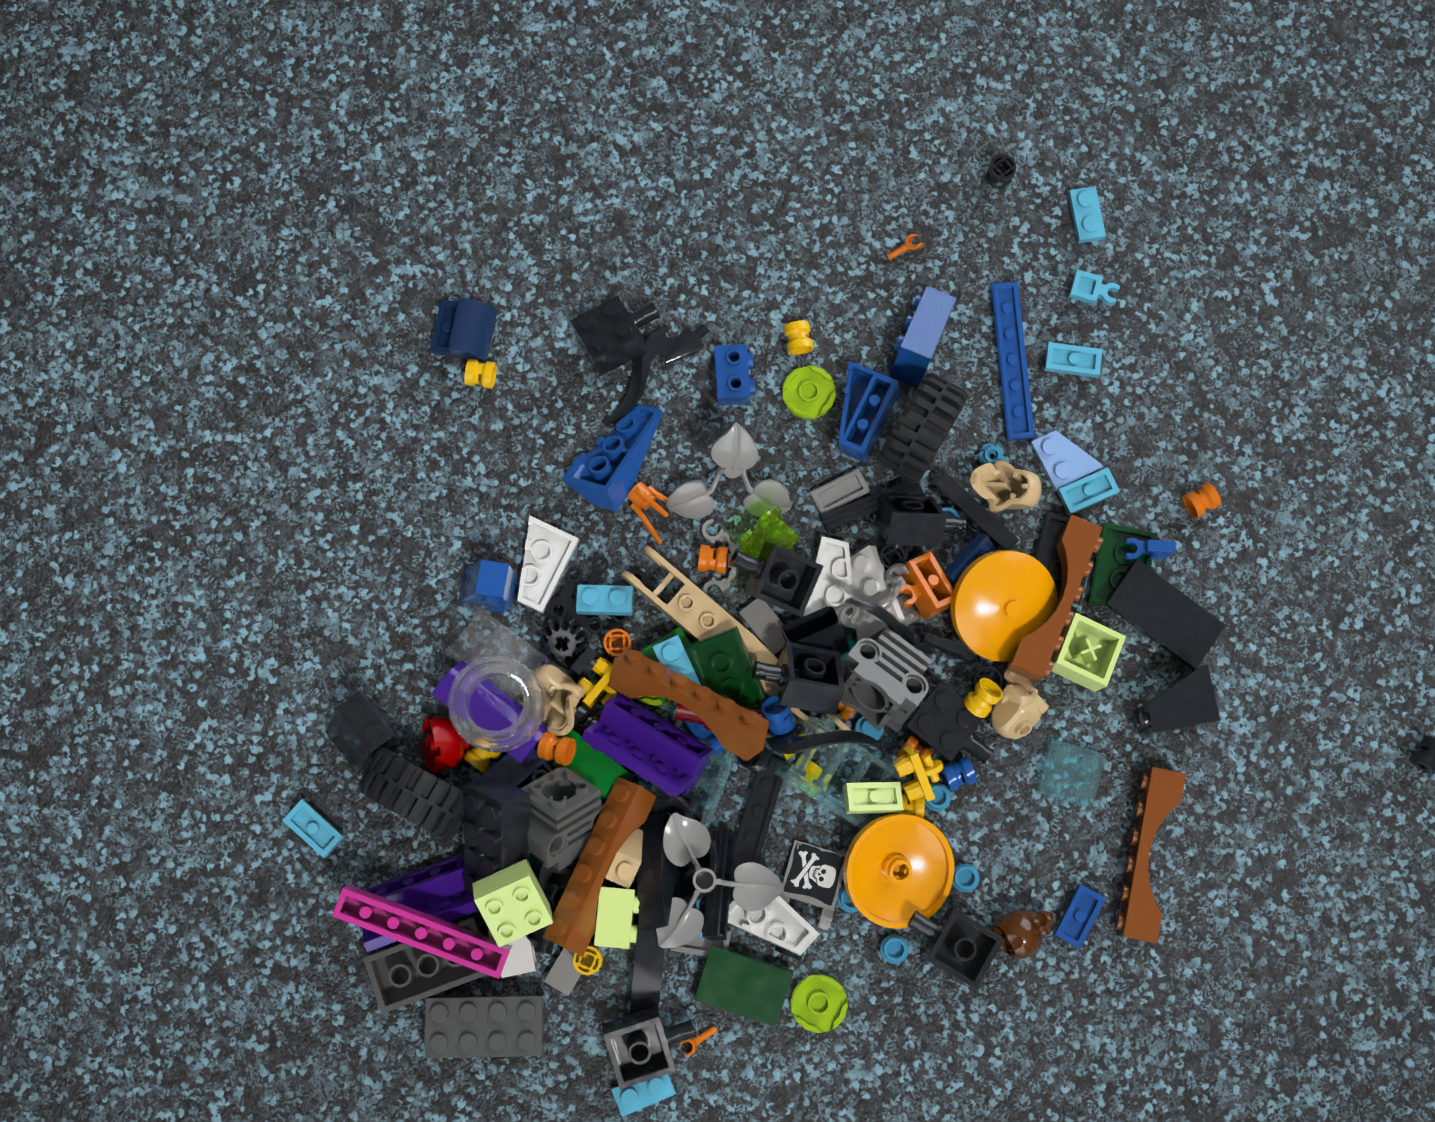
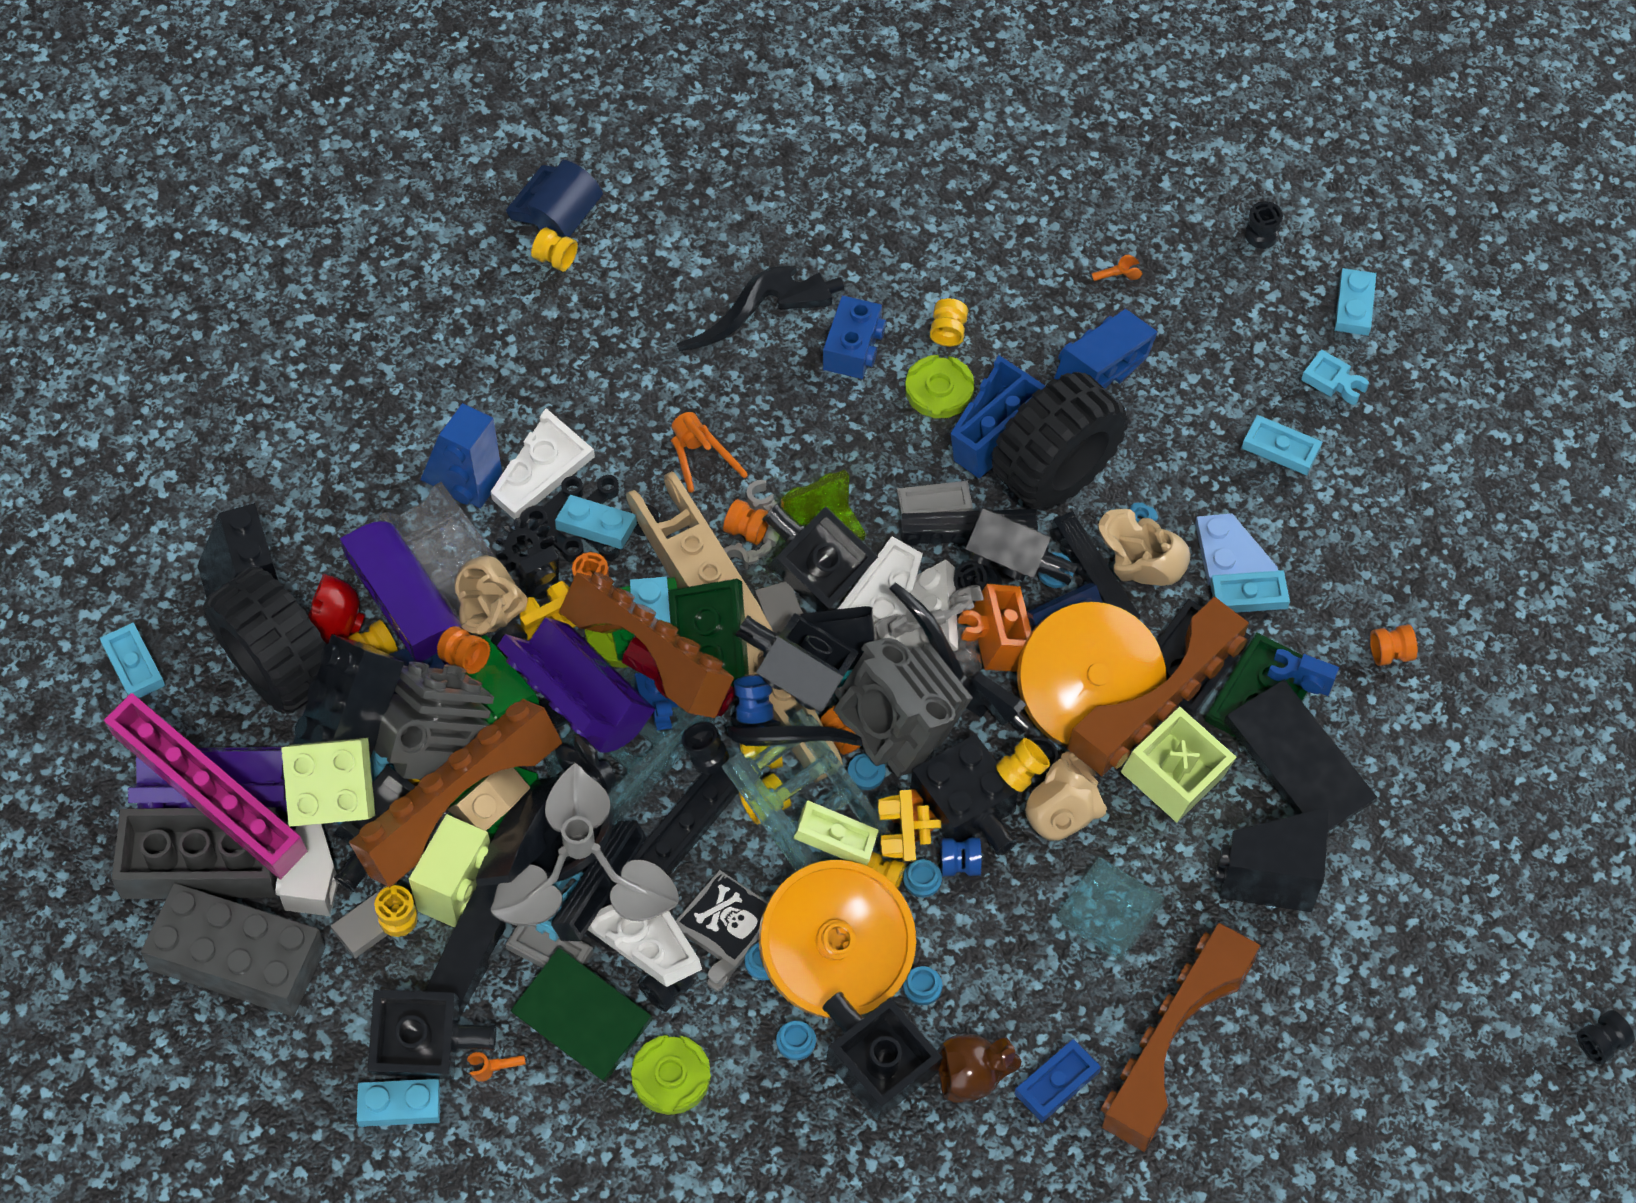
camera: 20 degrees right, 20 degrees down
(522, 729) = (421, 601): clear tyre -> none
(612, 333) = (727, 250): black brick -> none
(612, 466) = (660, 393): blue wedge -> none
(734, 454) = (809, 382): light grey plant -> none
(1012, 361) = (1204, 428): blue tile -> none

